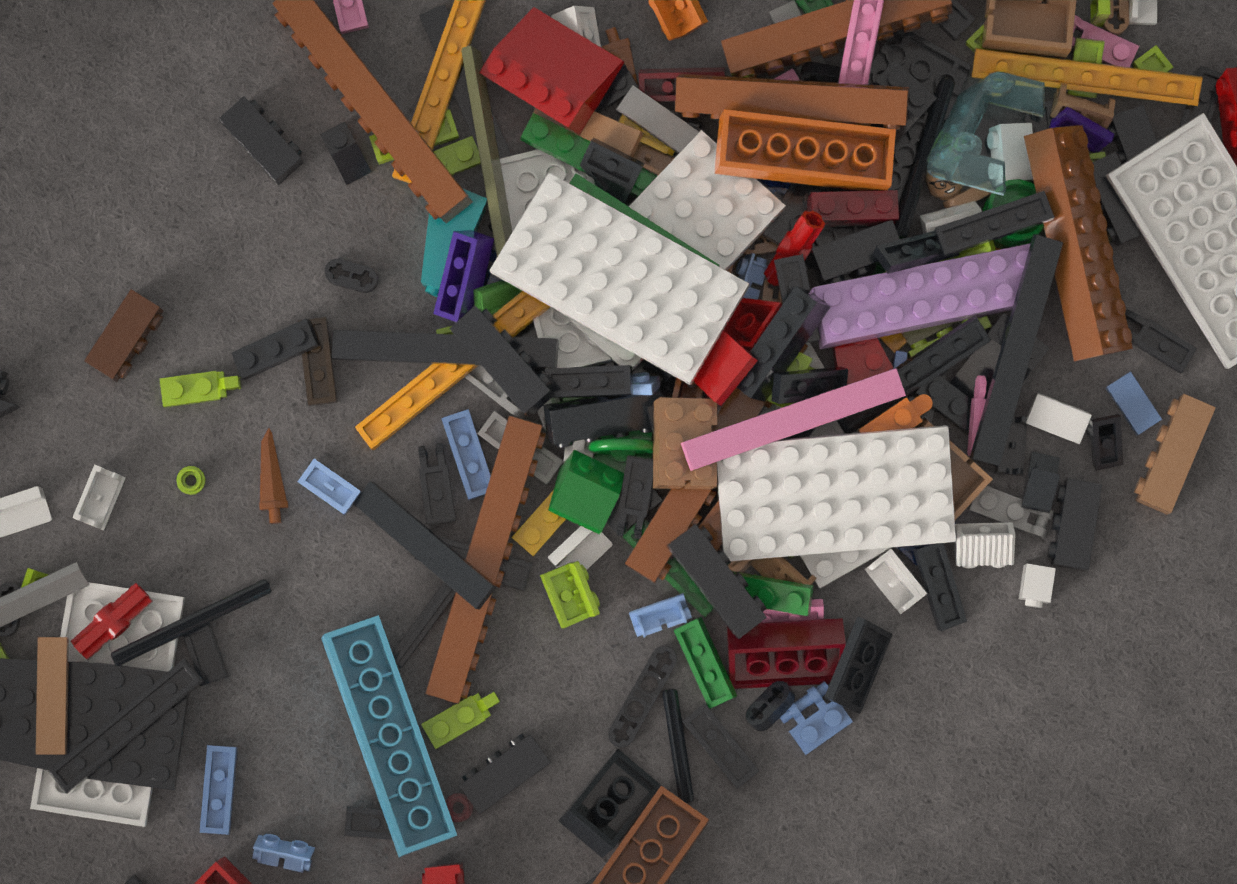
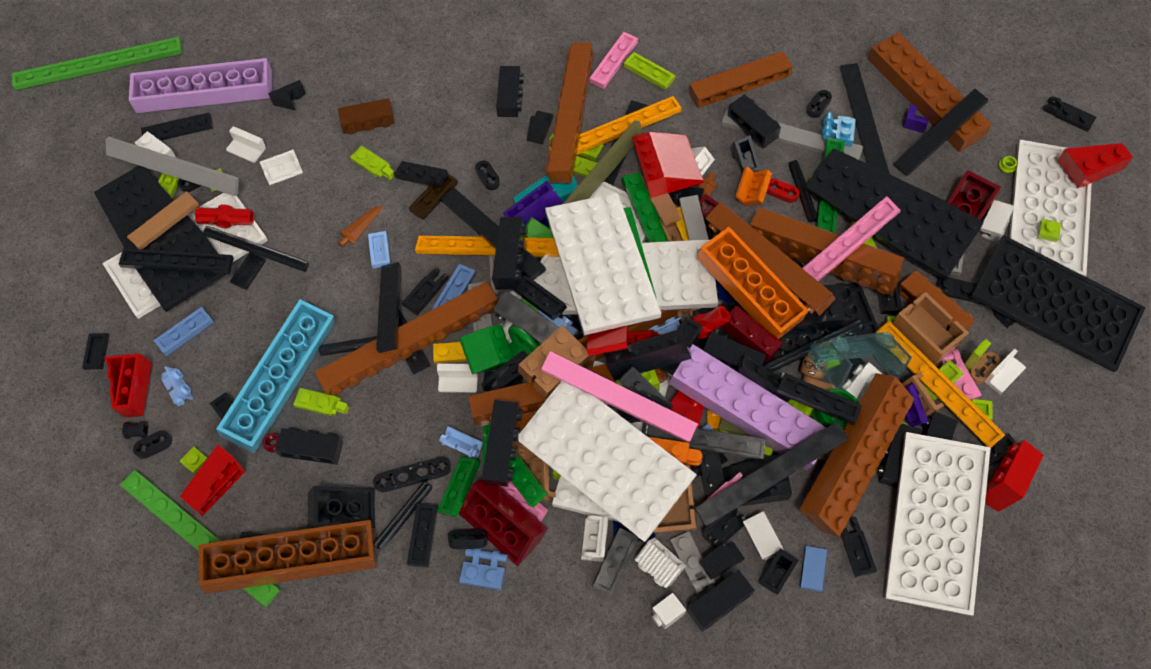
camera: 45 degrees right, 20 degrees down
(182, 476) = (326, 191): lime plate -> none
(570, 593) = (429, 392): lime bracket -> none
(611, 169) = (649, 220): black wing -> none
(858, 665) = (531, 559): black tile -> none
(1174, 454) = (812, 614): medium nougat brick -> none

